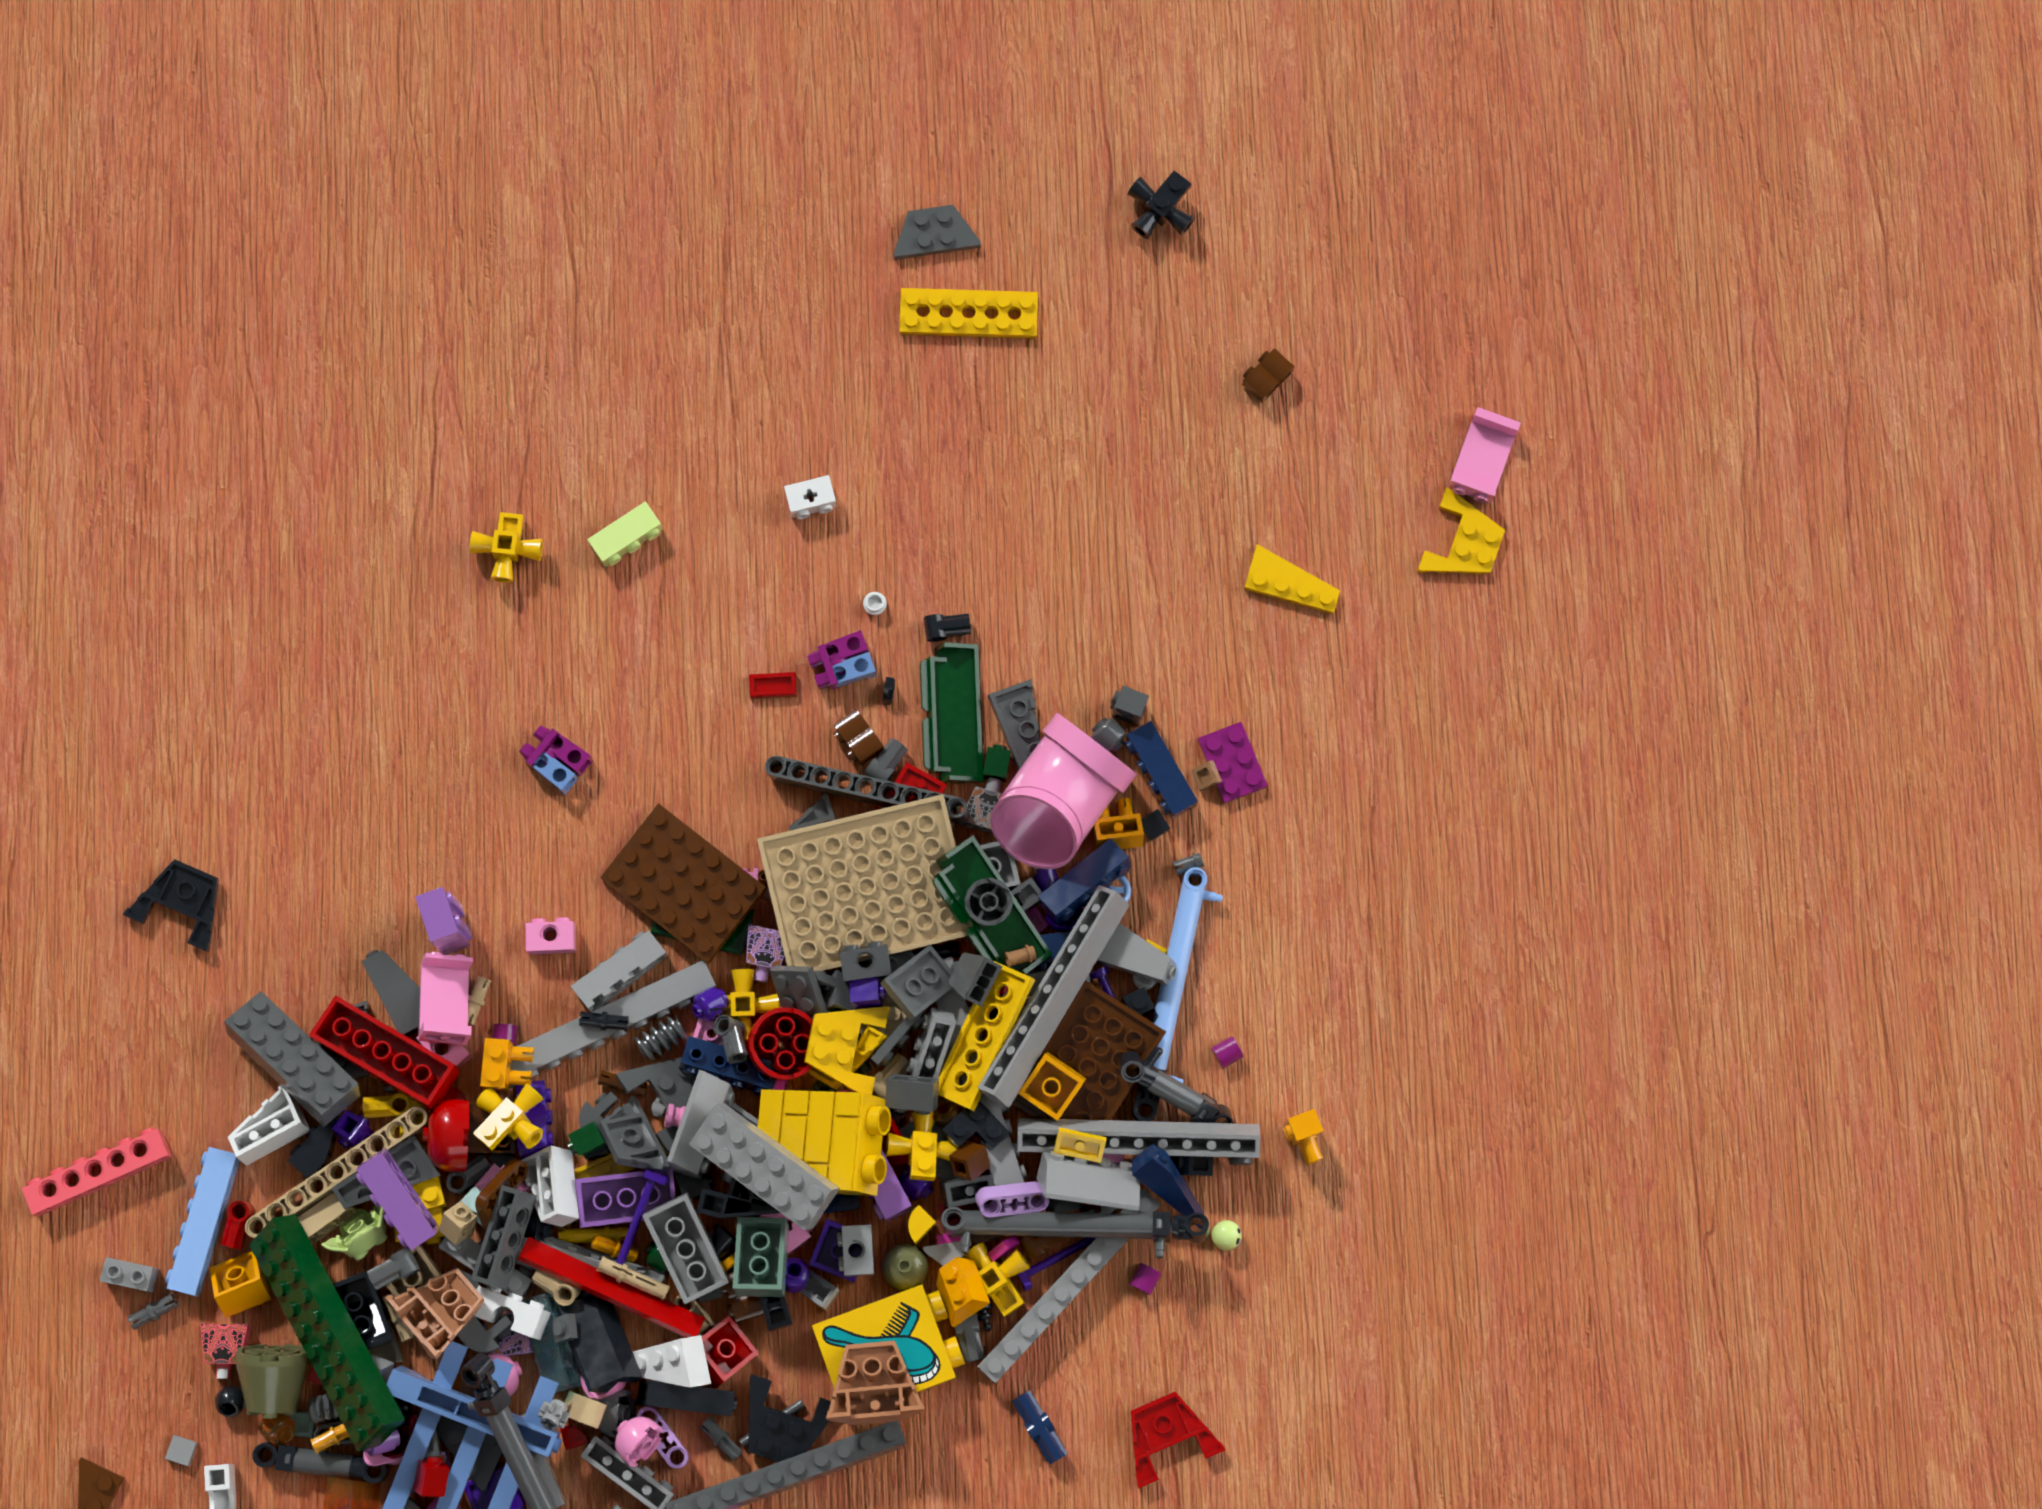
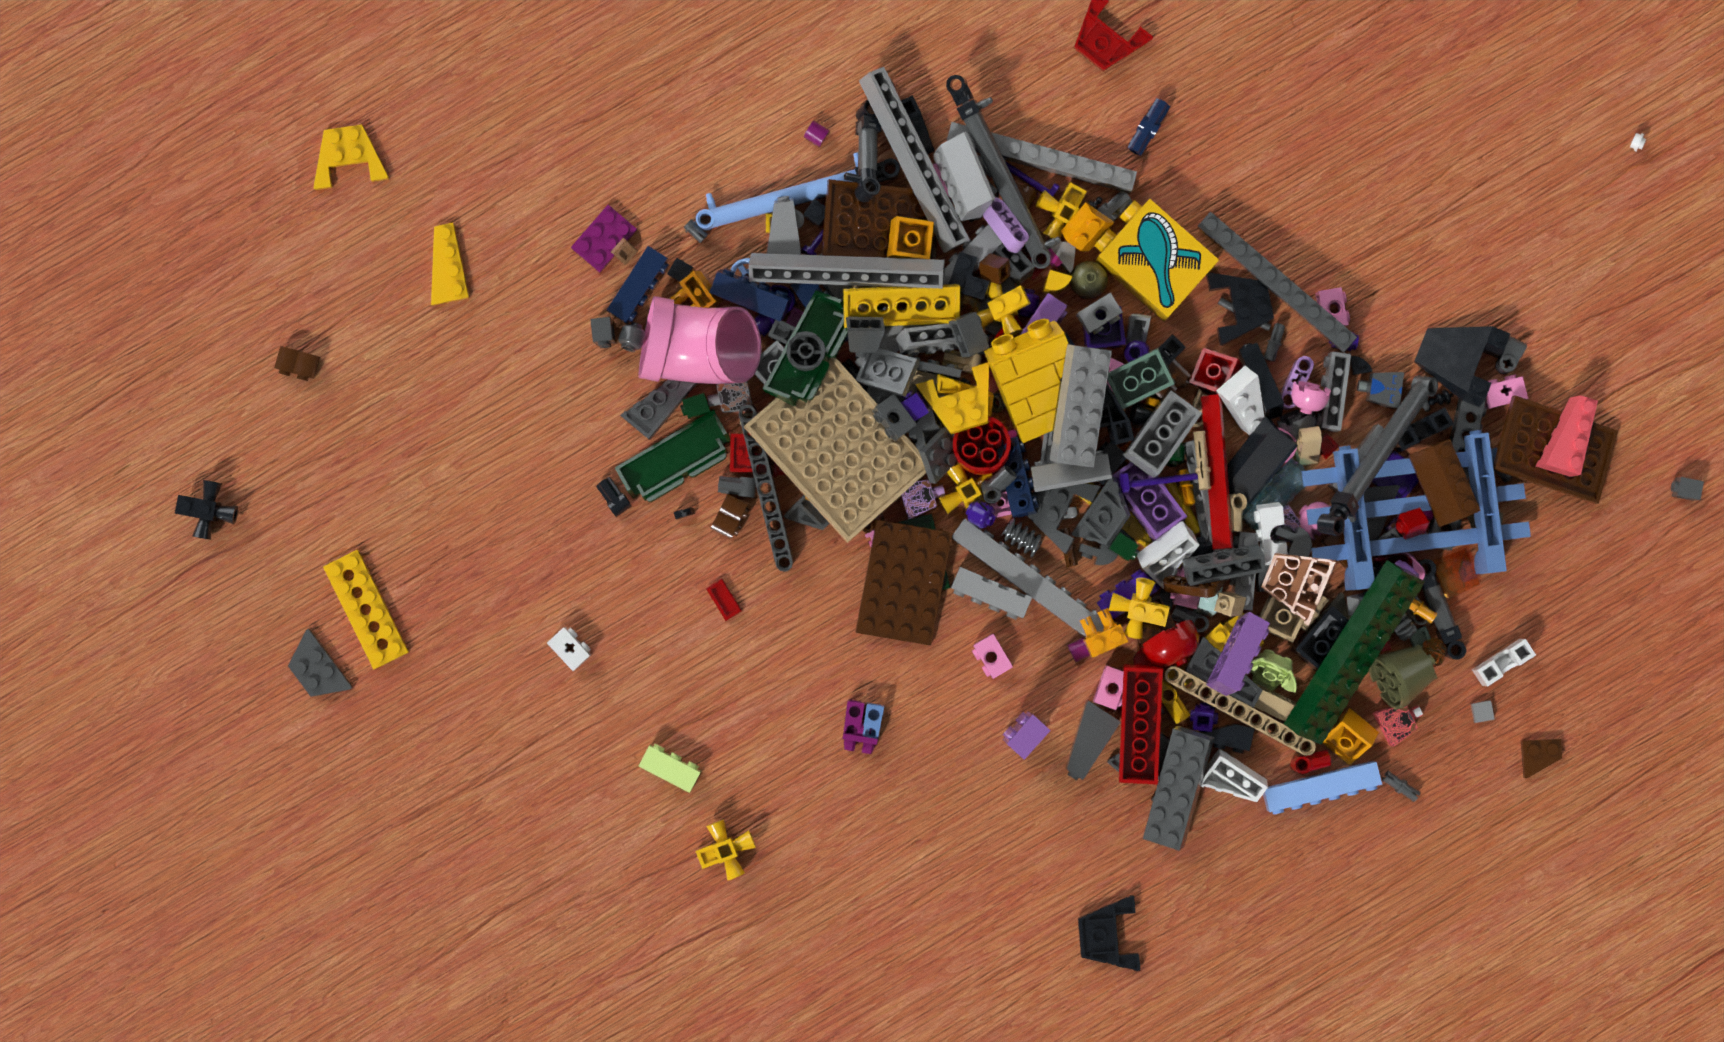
camera: 115 degrees left, 10 degrees up
(36, 1191) = (1369, 909): coral brick -> none
(129, 1274) = (1386, 816): light grey brick -> none
(229, 1401) = (1433, 696): black piece -> none
(399, 1266) = (1284, 629): dark grey piece -> none
(444, 998) = (1078, 705): bright pink panel -> none
(476, 998) = (1065, 684): tan pin -> none
(553, 1414) = (1326, 460): light grey gear -> none
(564, 1328) = (1262, 488): dark grey plate -> none
(603, 1021) = (1033, 582): black pin -> none
(673, 1115) = (1073, 494): bright pink wheel -> none
(844, 661) = (686, 559): magenta hips -> none
(873, 1386) = (1187, 250): nougat wedge -> none
(874, 603) = (623, 559): white plate -> none
(1003, 1248) = (1040, 216): dark pink tile -> none
(1020, 956) = (826, 307): medium nougat pin -> none
(1079, 1145) = (943, 196): yellow plate -> none
(1145, 1279) = (1006, 108): magenta brick -> none
(1160, 1175) = (933, 128): dark blue slope -> none
(1226, 1235) = (946, 66): yellowish green piece -> none
(1302, 1132) = (845, 48): light orange brick -> none
(1483, 455) = (275, 174): bright pink panel -> none

